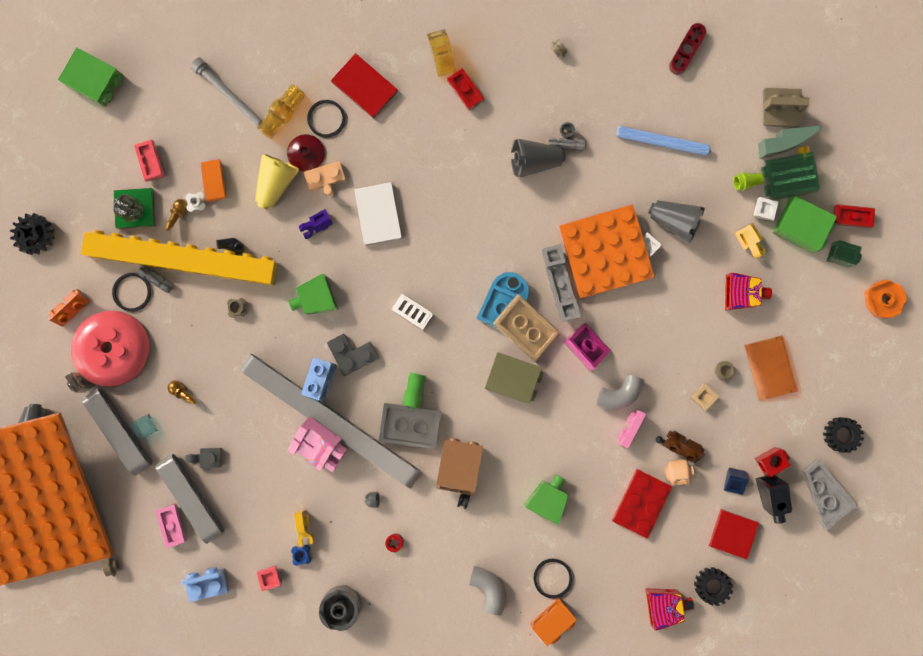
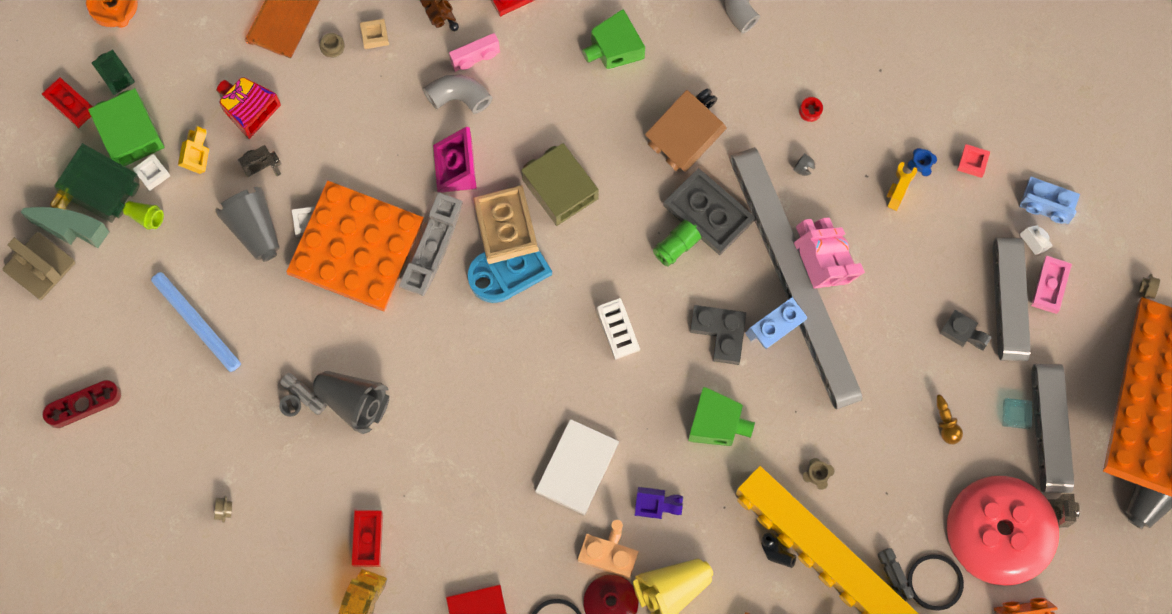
camera: 145 degrees left, 15 degrees down
(197, 549) = (1036, 239): none -> white plate
(339, 619) = (914, 80): dark grey brick -> none
(709, 261) = (258, 159): none -> clear smoke bracket

